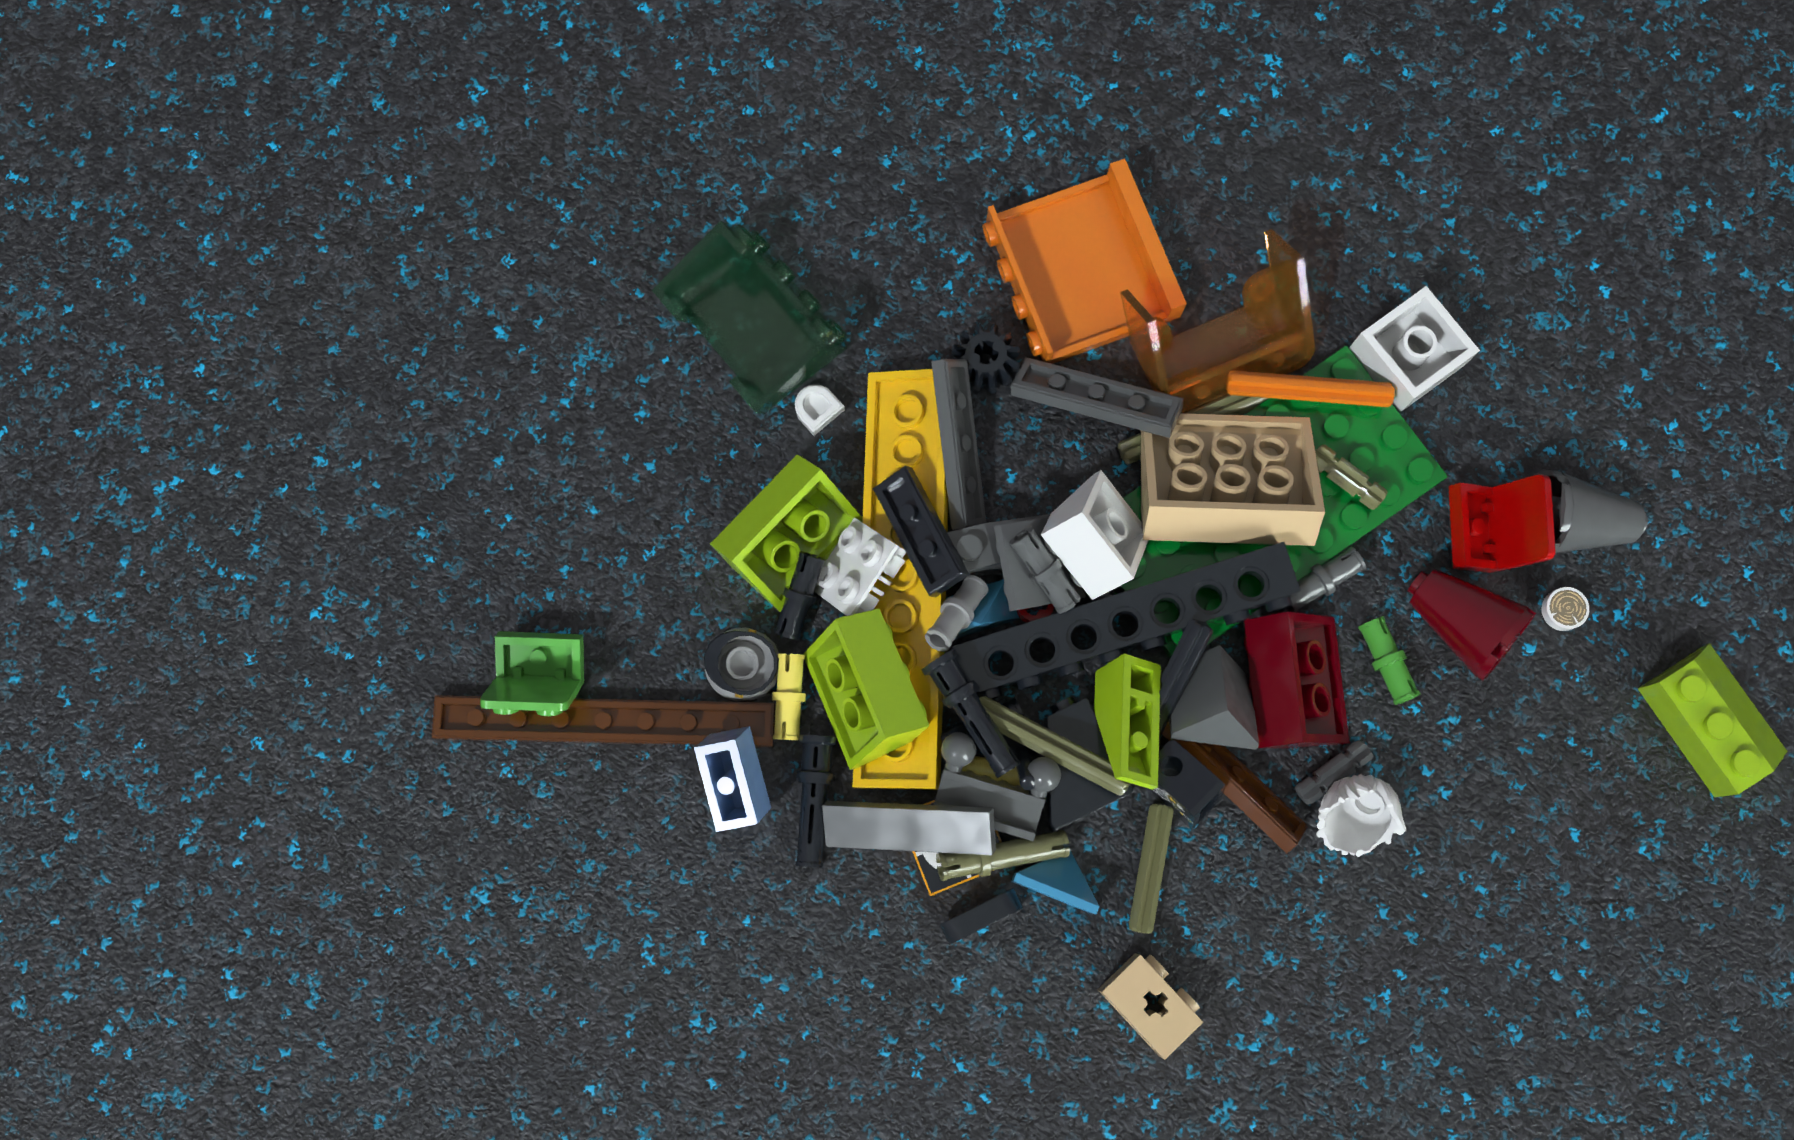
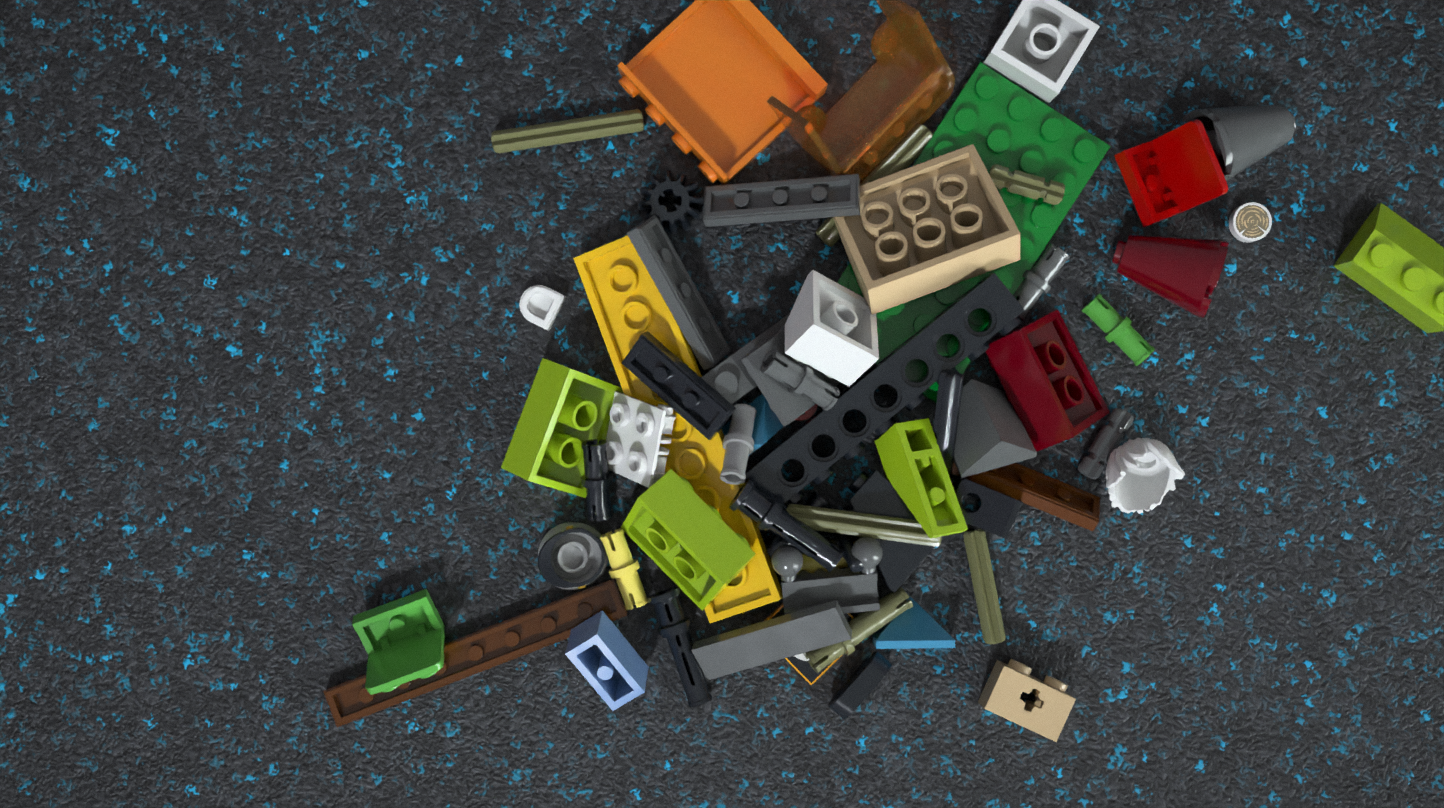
camera: 20 degrees left, 10 degrees up
(751, 314) = (450, 246): clear green windscreen -> none
(913, 254) = (567, 131): none -> olive axle
(1310, 388) = (964, 118): orange axle -> none

